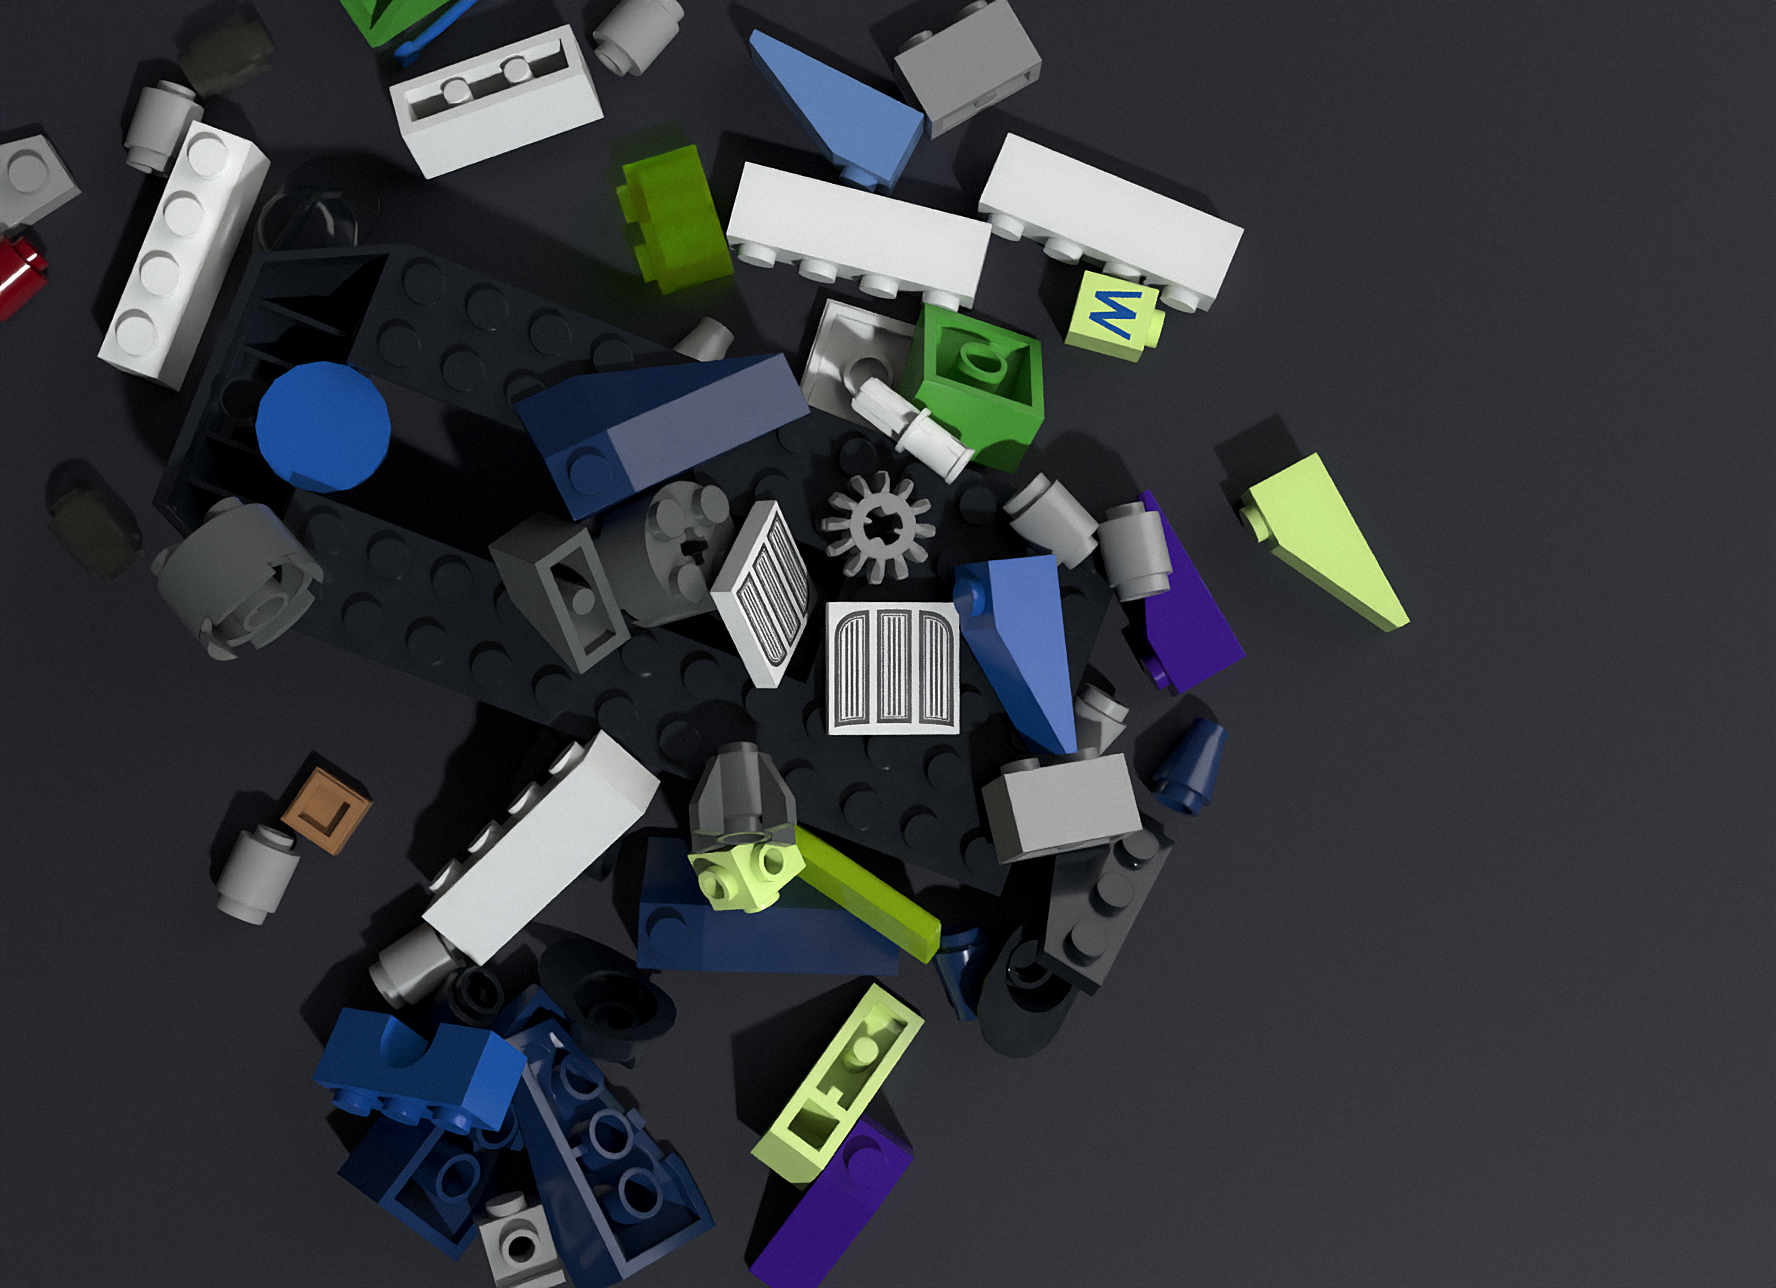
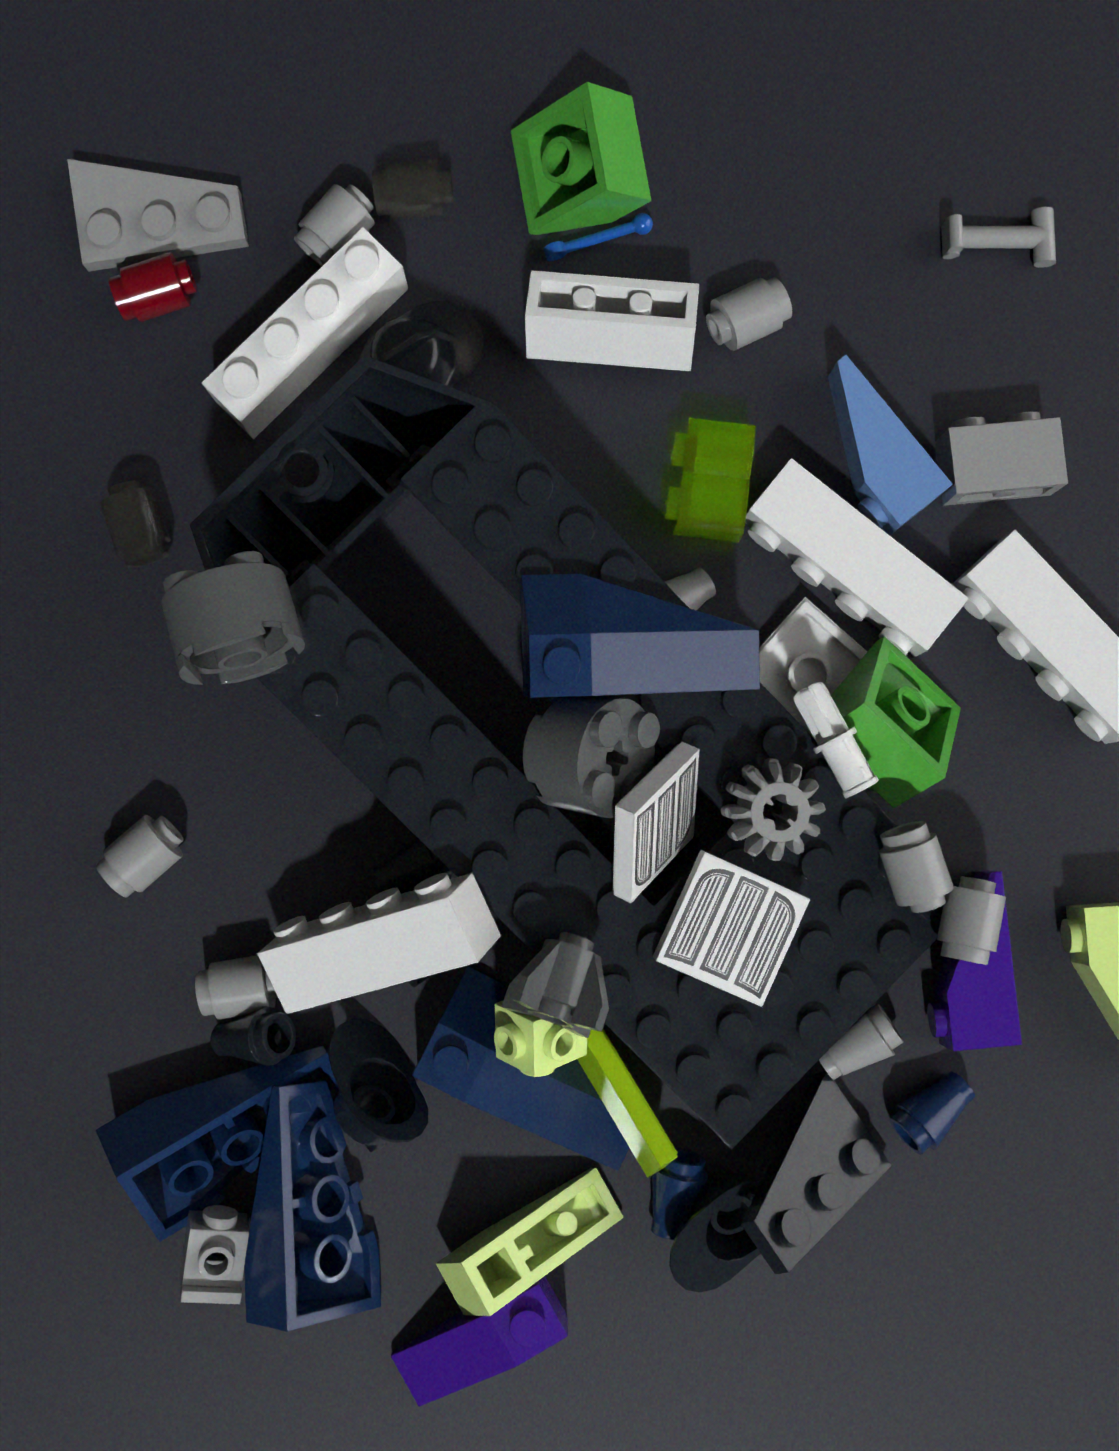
camera: 20 degrees right, 0 degrees up
(323, 427) = (357, 523): blue tile -> none
(327, 810) = (220, 827): medium nougat tile -> none
(456, 1084) = (228, 1108): blue arch -> none
(561, 588) = (493, 744): dark grey slope -> none
(1018, 637) = (846, 954): slope -> none
(1060, 805) = (818, 1104): light grey brick -> none
(1115, 317) = (1031, 716): yellowish green brick -> none

